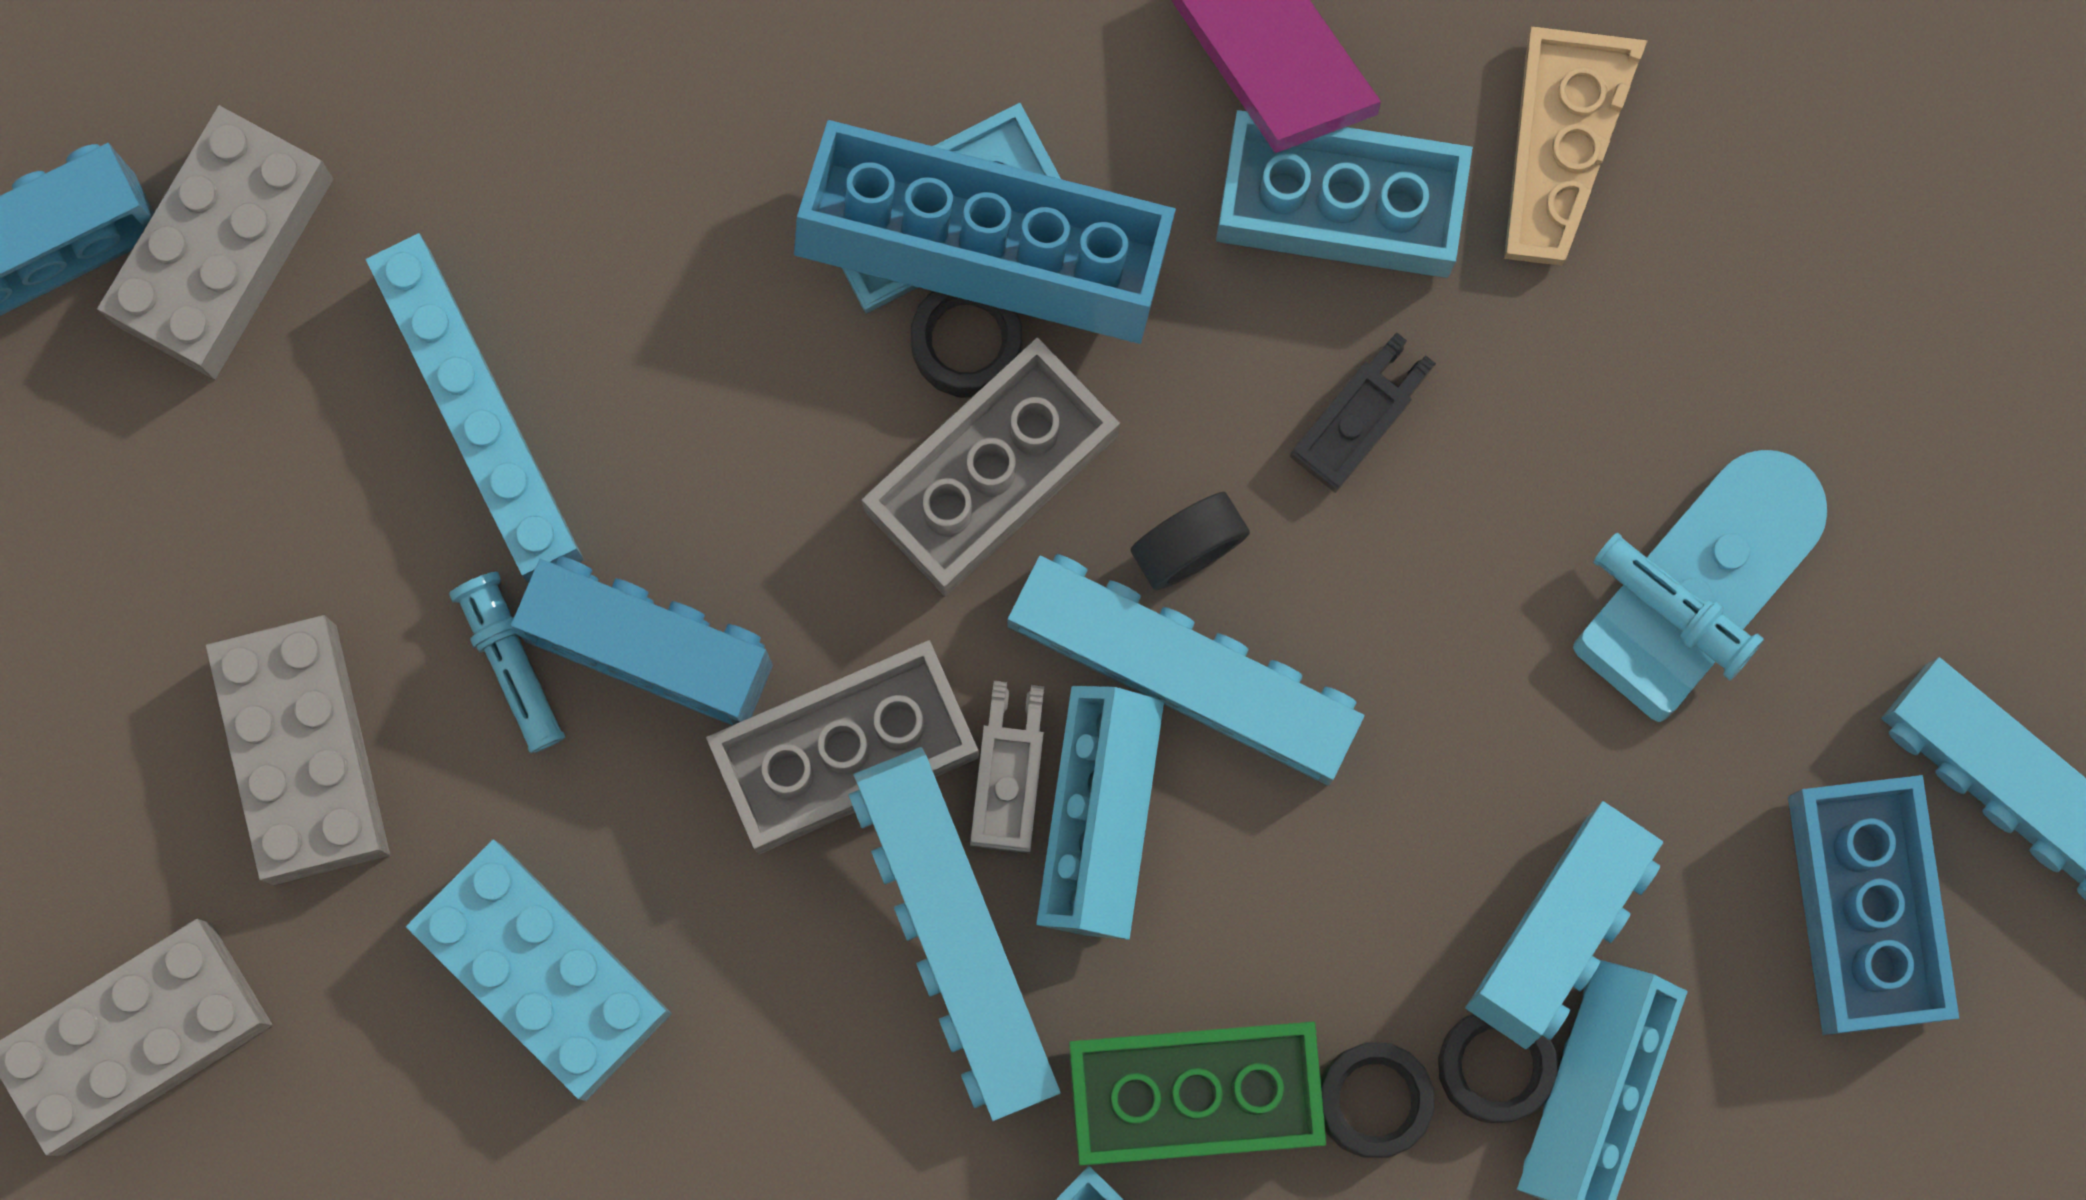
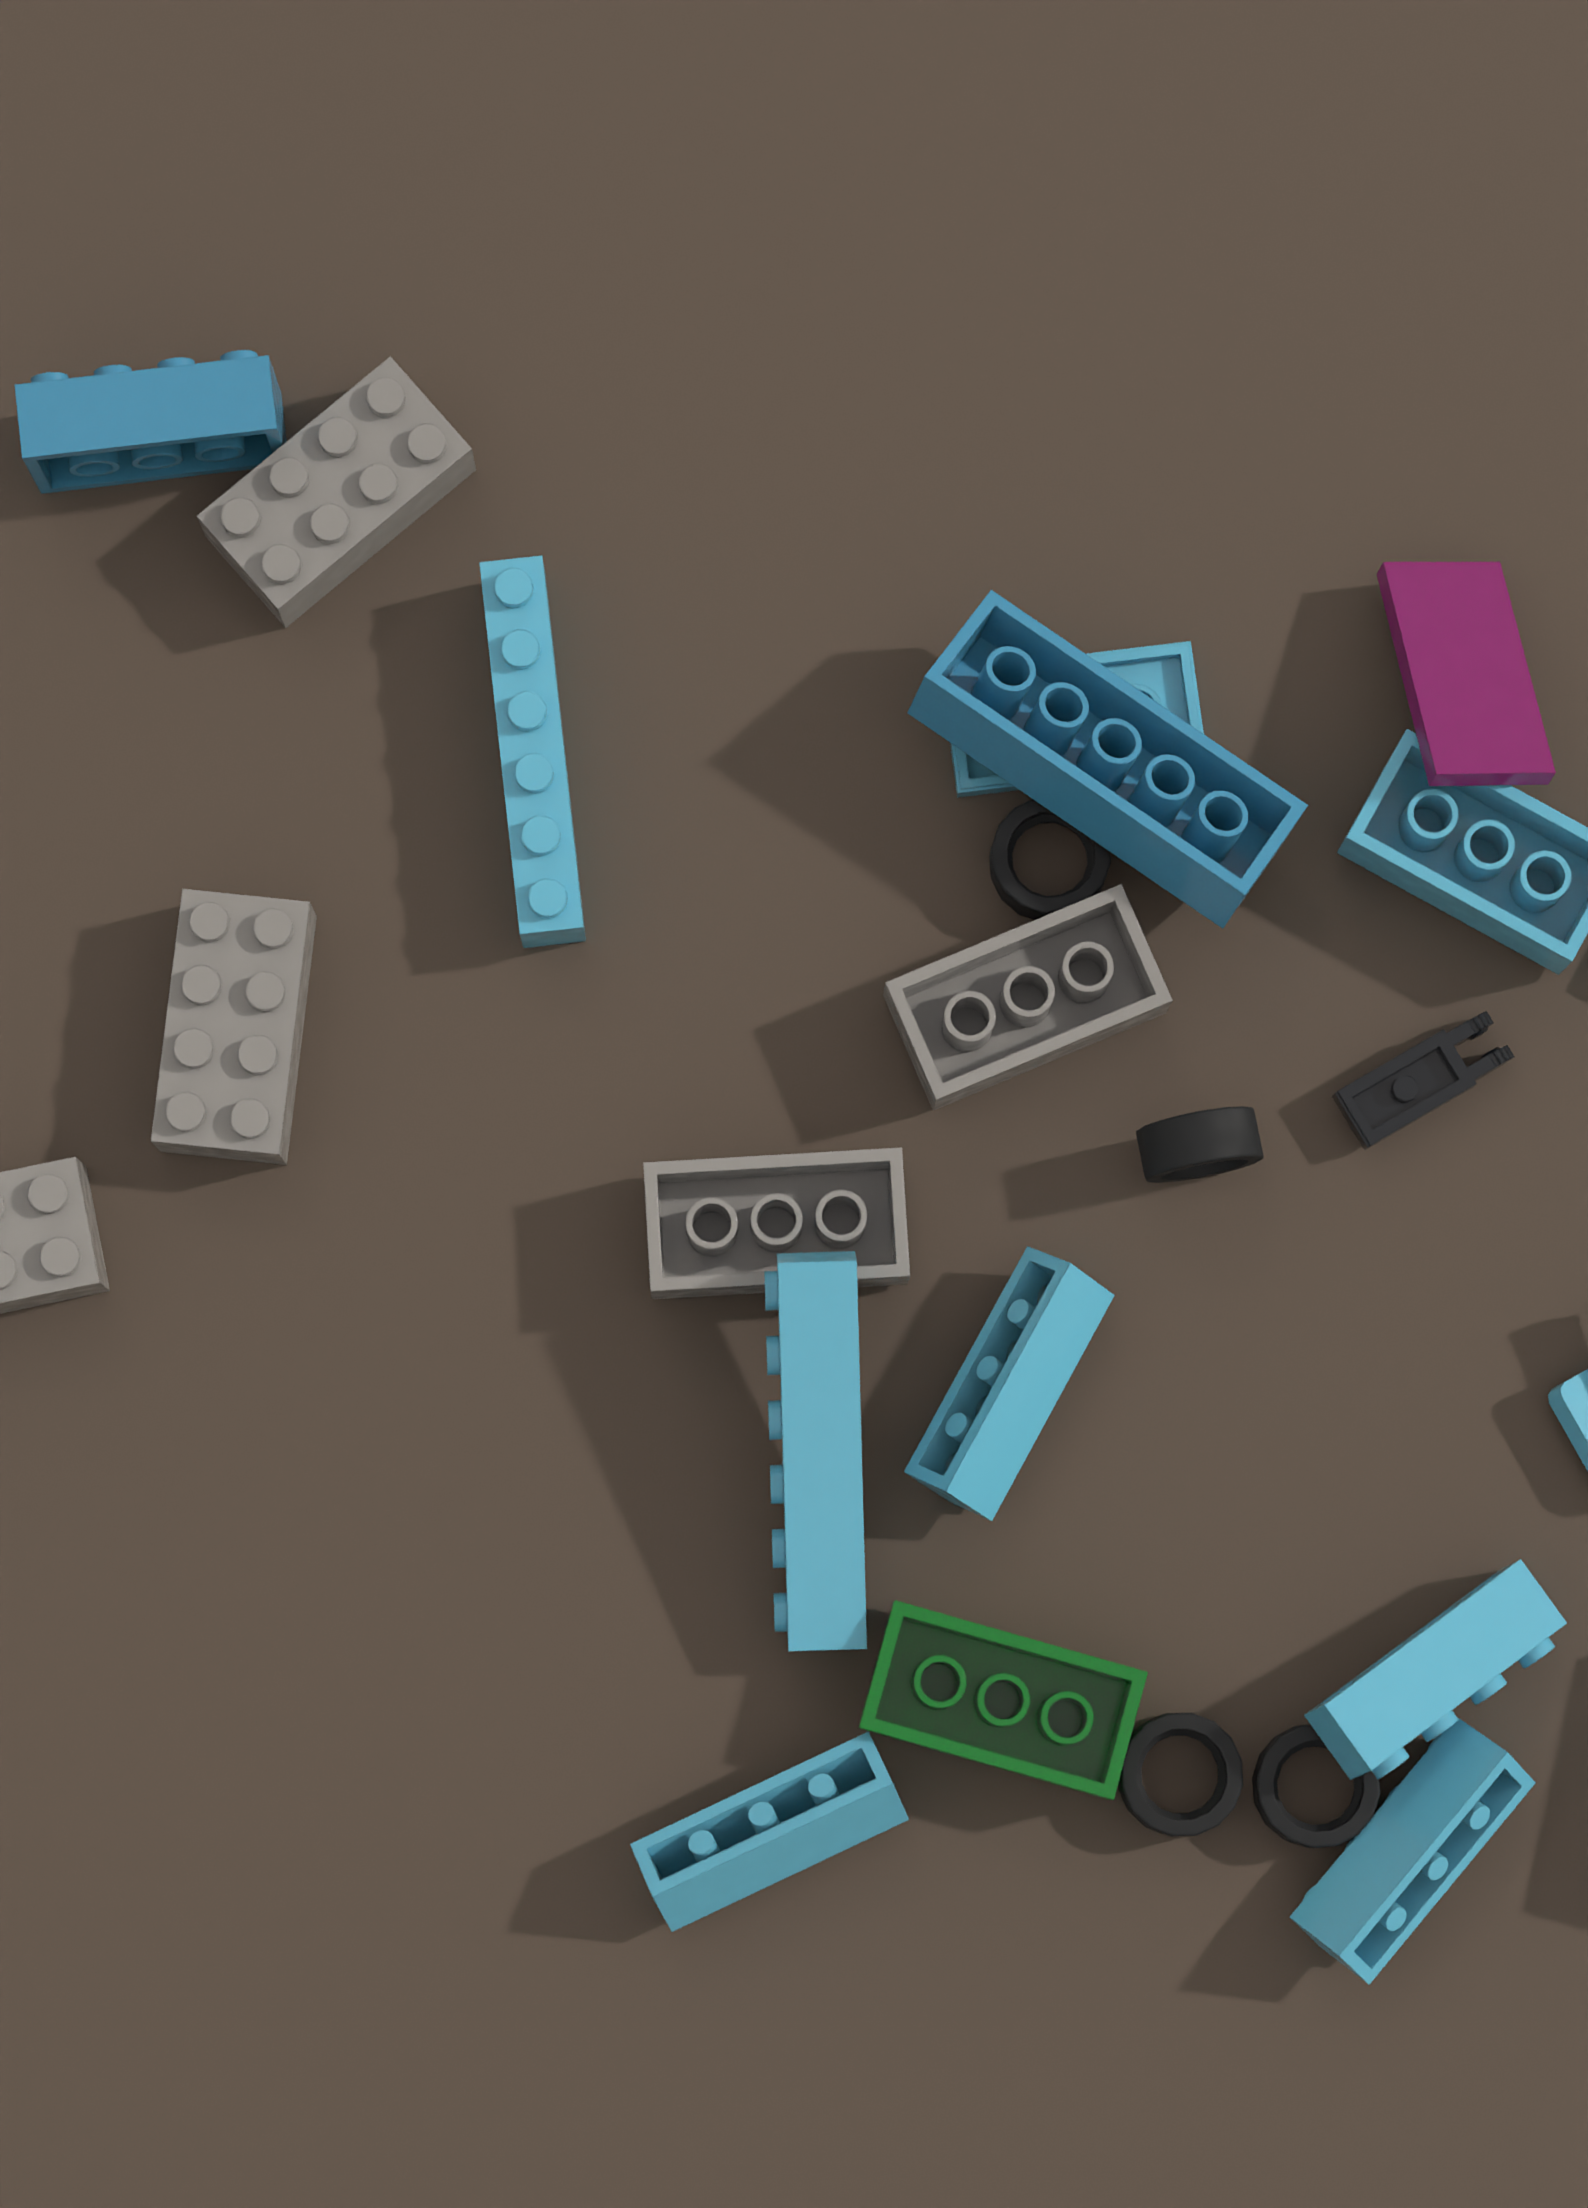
camera: 20 degrees right, 0 degrees up
(493, 634) = (473, 986): medium azure pin -> none
(538, 970) = (392, 1333): medium azure brick -> none
(642, 643) = (614, 1046): dark azure brick -> none
(1008, 776) = (930, 1313): light grey hinge -> none
(1185, 669) = (1150, 1275): medium azure brick -> none

